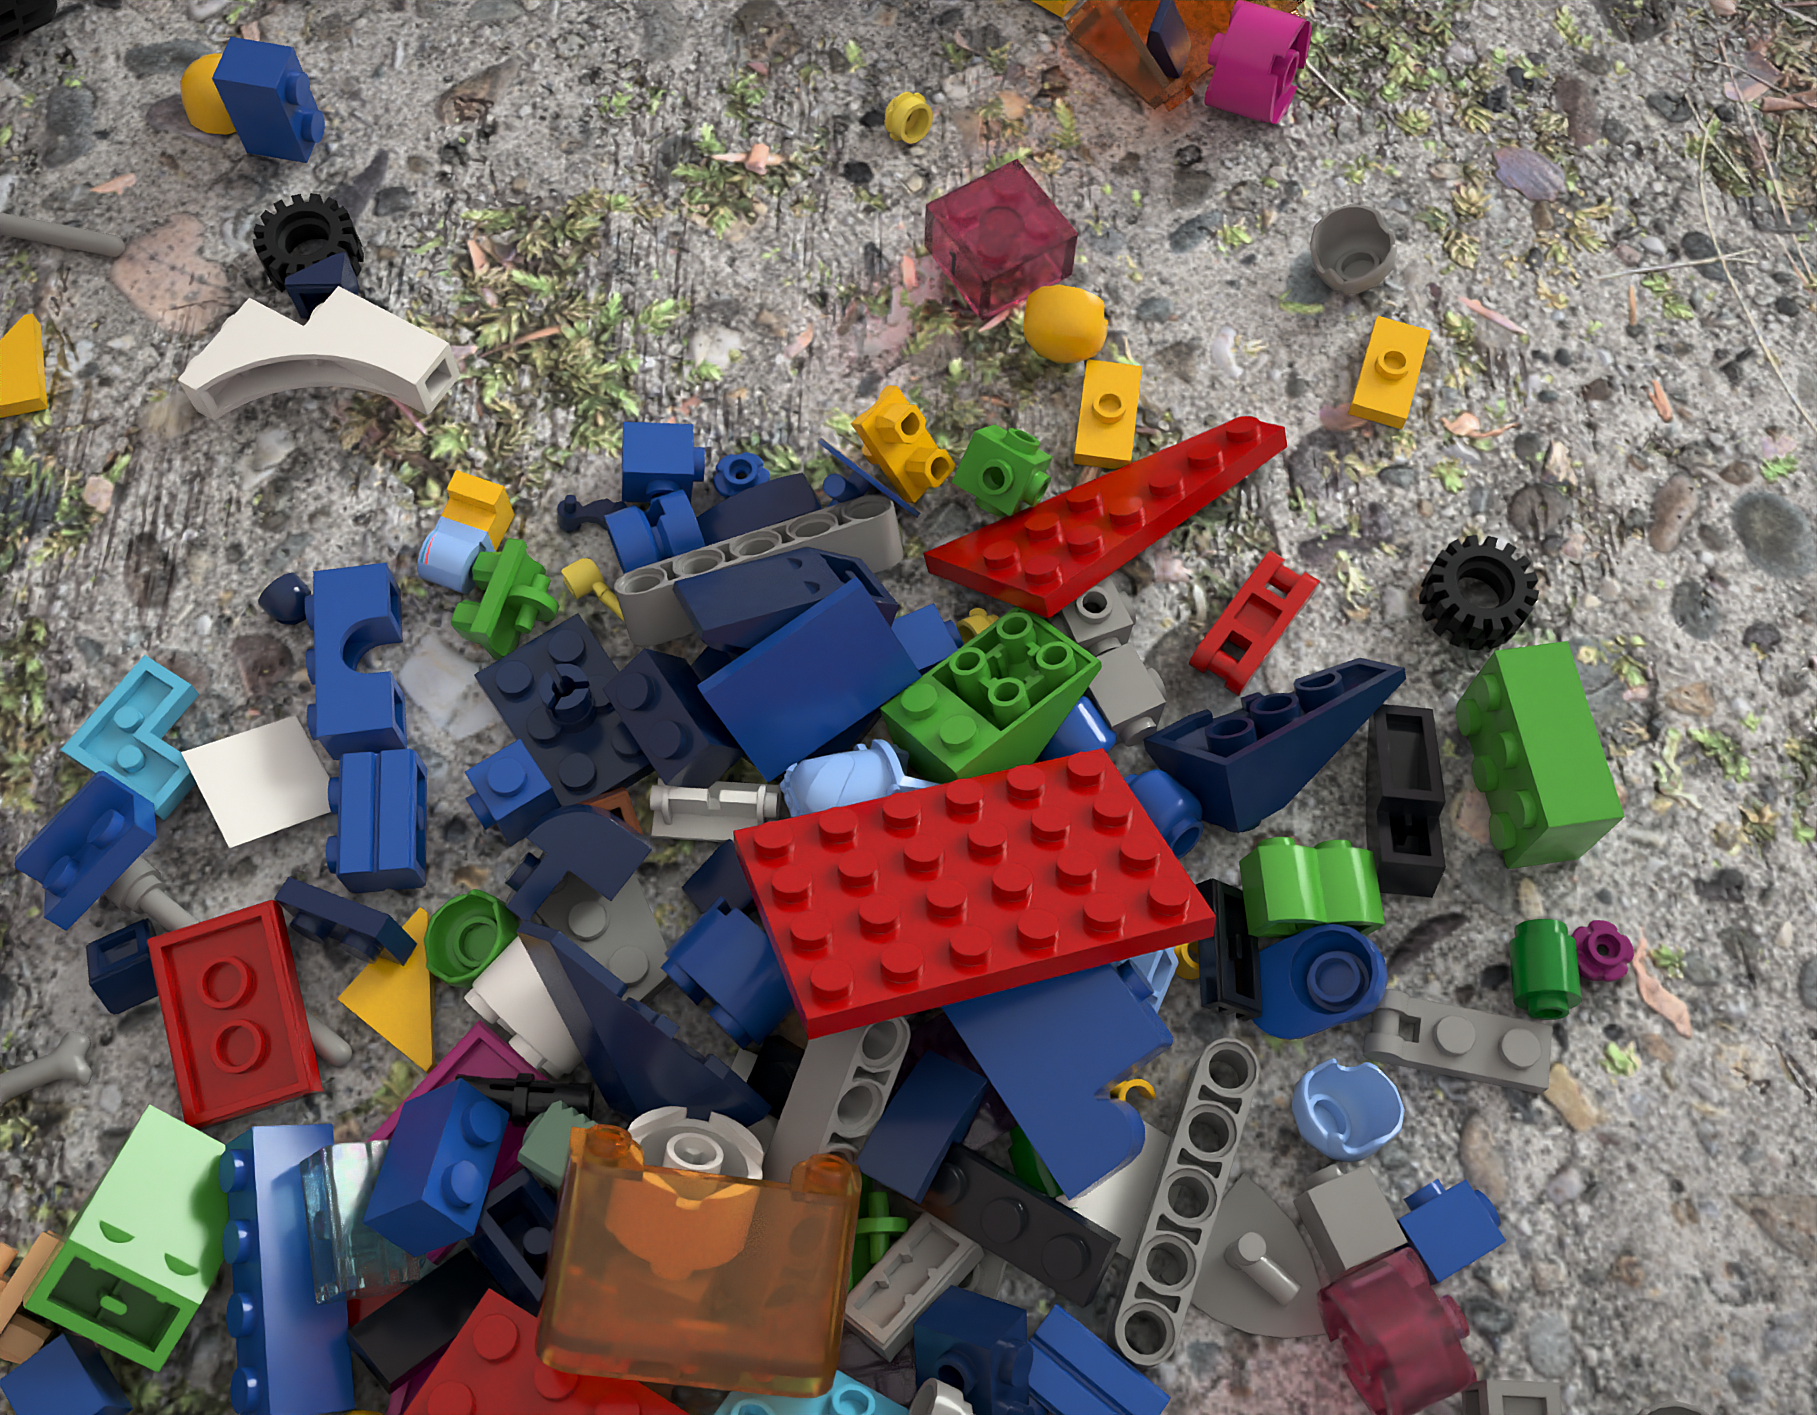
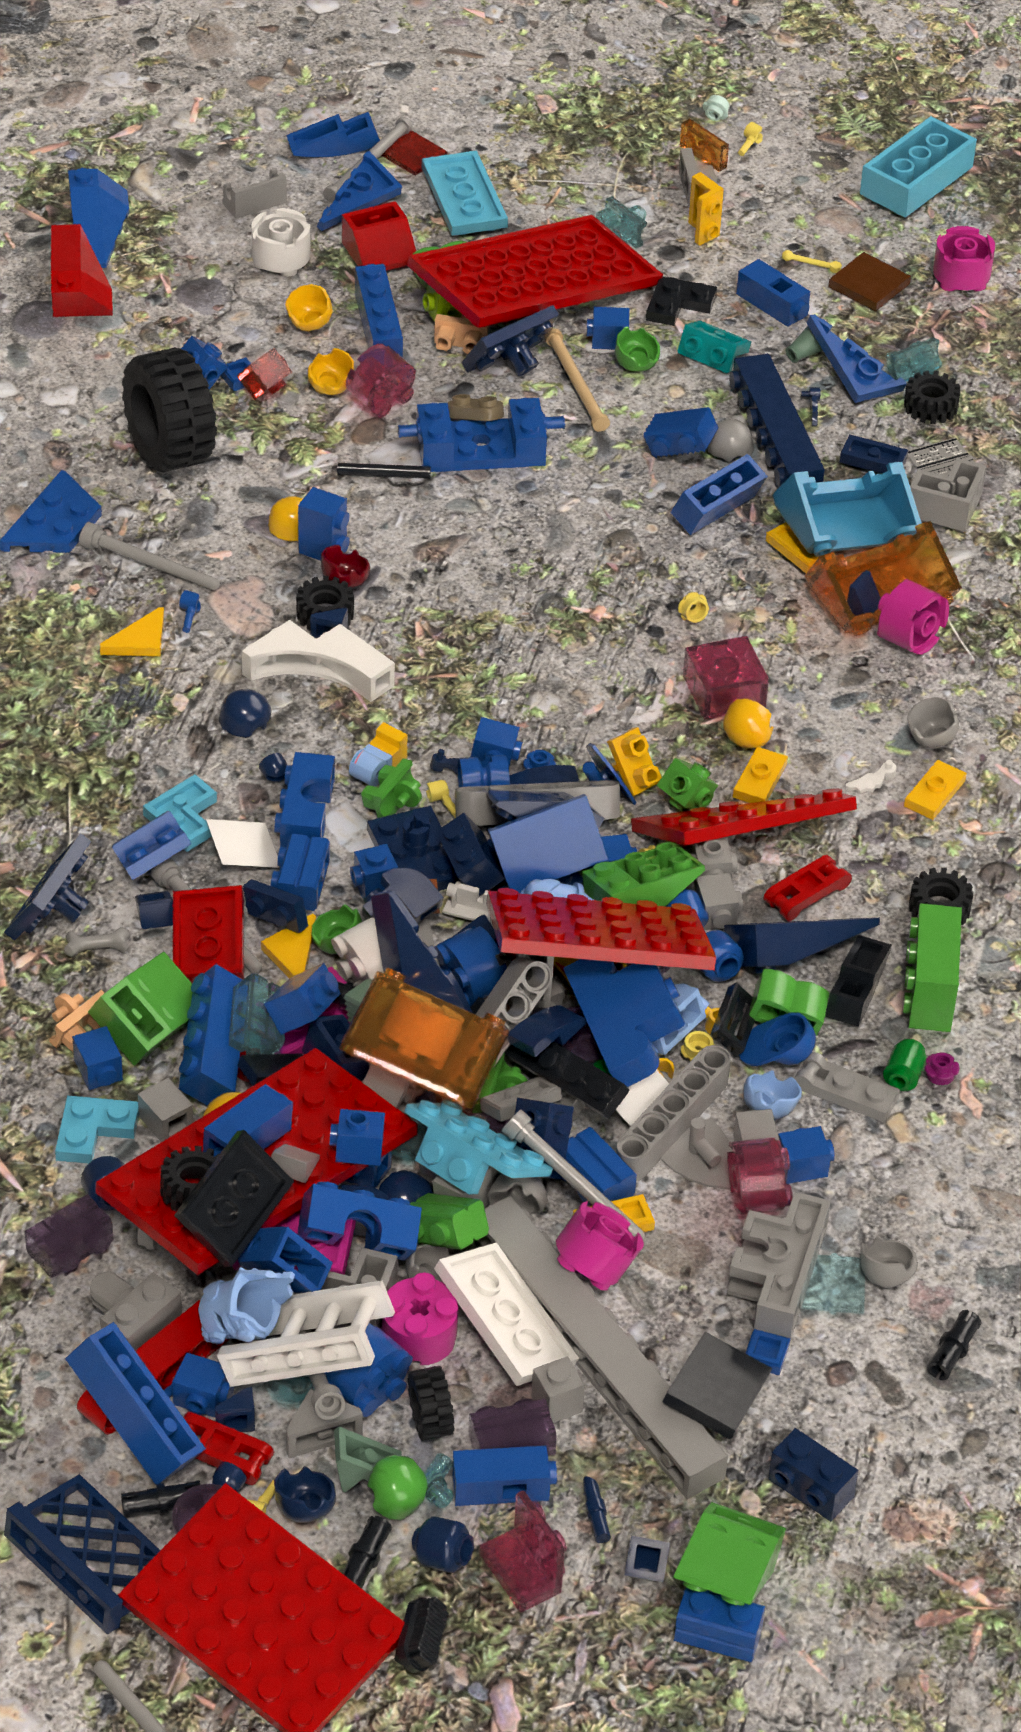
camera: 15 degrees right, 20 degrees down
(77, 291) = (189, 602): none -> blue hand
(213, 494) = (244, 712): none -> dark blue hair
(324, 168) = (346, 567): none -> dark red hair
(1196, 1022) = (695, 1043): none -> light yellow plate
(1285, 378) = (871, 781): none -> white piece

